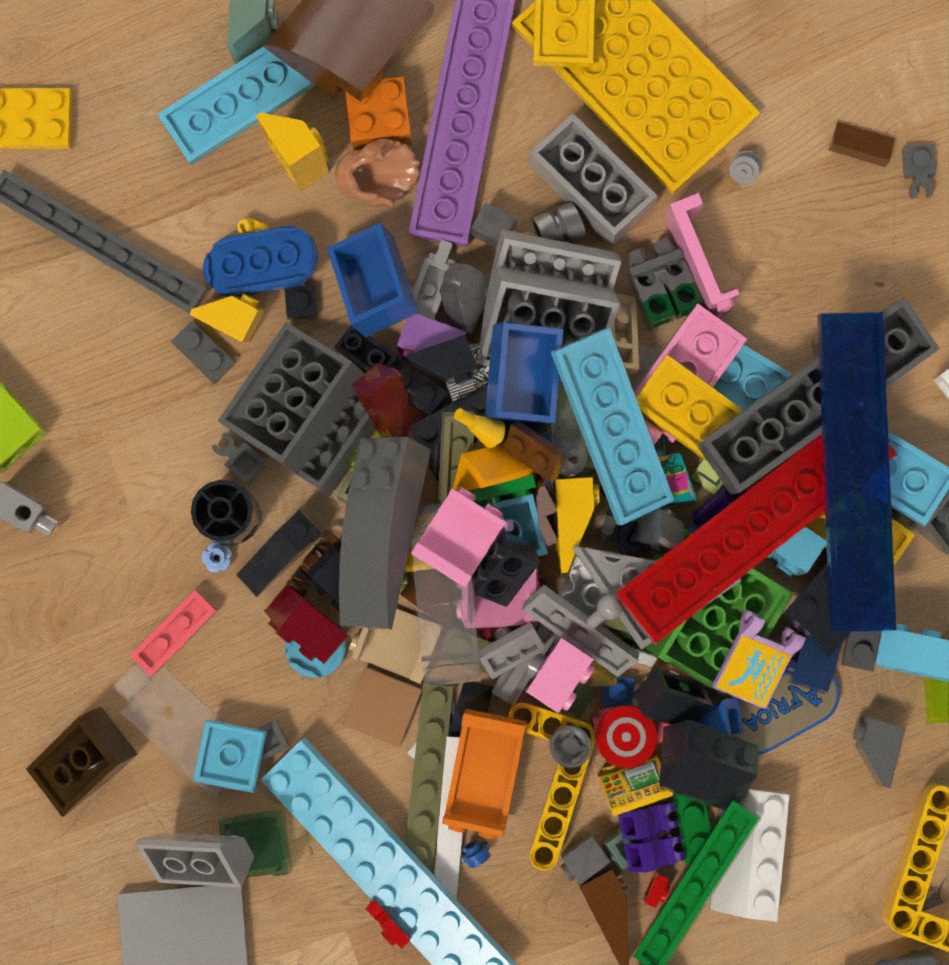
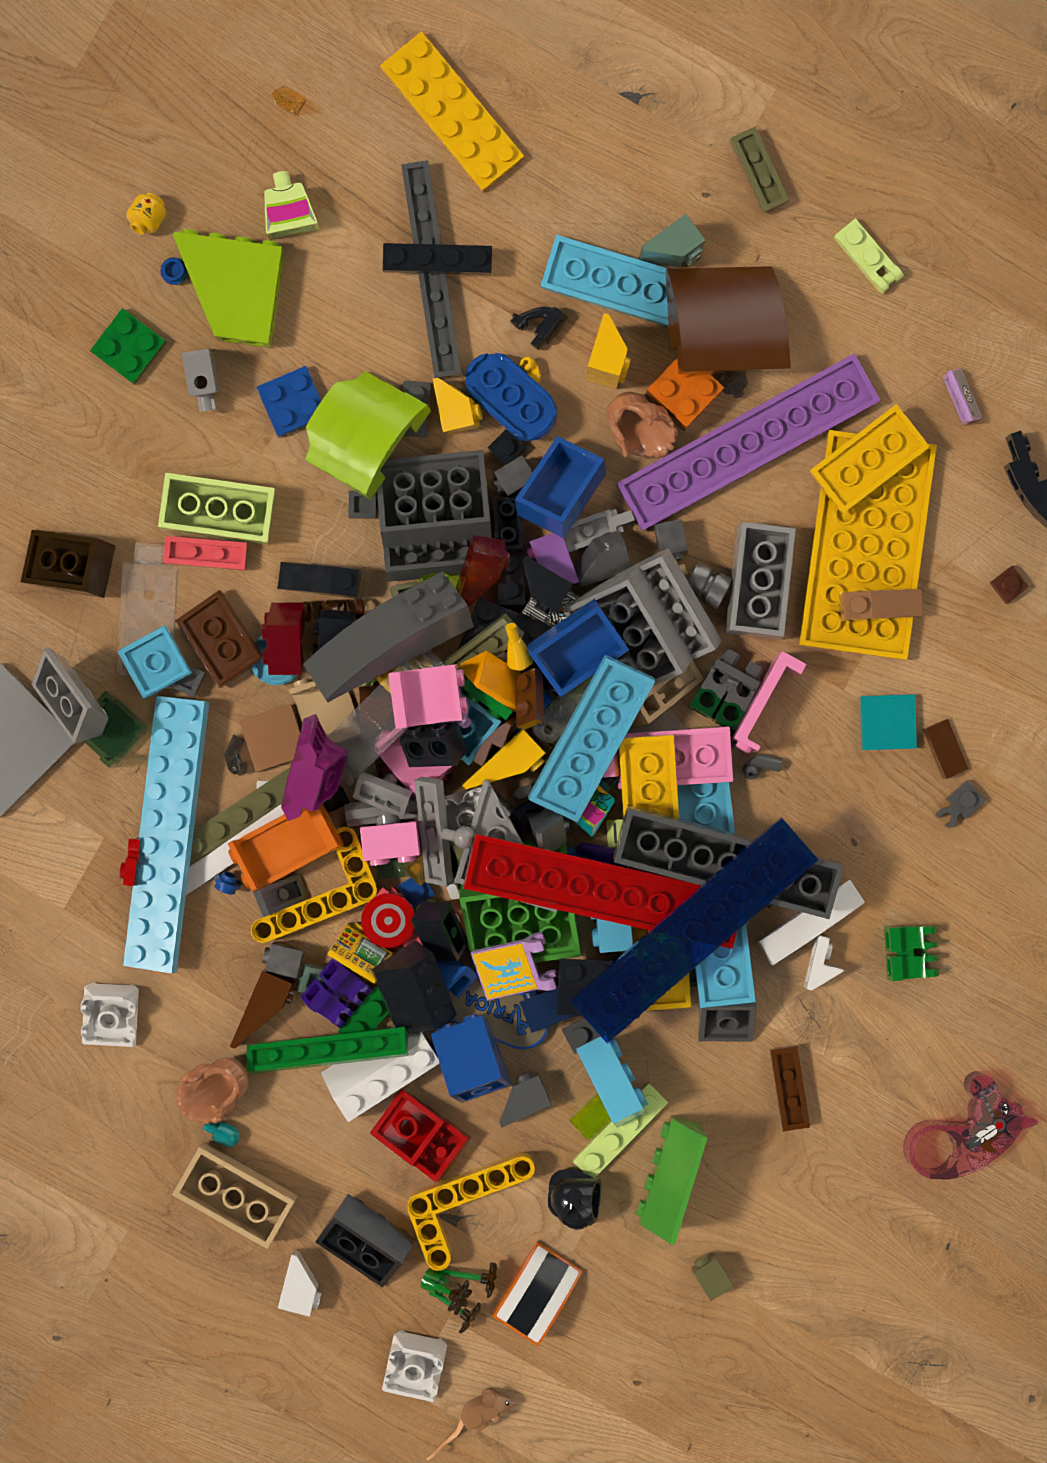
camera: 45 degrees right, 5 degrees up
(92, 228) = (437, 259): none -> black plate
(108, 451) = (290, 400): none -> blue plate
(143, 591) = (216, 508): none -> yellowish green brick
(180, 411) = (359, 429): none -> lime slope
(216, 565) = (276, 533): light blue plate -> none
(225, 512) = (315, 508): black cylinder -> none
(228, 179) = (548, 328): none -> black plant
(258, 682) = (220, 639): none -> reddish brown tile
(330, 316) = (512, 477): none -> flat silver brick
(369, 757) = (232, 756): none -> clear smoke arm
(407, 66) = (734, 384): none -> clear smoke tile
(442, 693) = (314, 770): none -> magenta slope
(525, 814) = (280, 895): none -> dark grey slope
(570, 746) = (350, 887): flat silver wheel -> none
(657, 889) = (304, 1026): red plate -> none
(695, 97) = (880, 604): none -> medium nougat slope
(745, 167) = (859, 681): light grey wheel -> none
(747, 308) = (760, 763): none -> dark grey arm
(799, 173) = (888, 722): none -> teal tile
(805, 765) = (470, 1059): none -> blue slope
(838, 867) = (420, 1135): none -> red slope
(922, 386) = (805, 927): none -> white slope

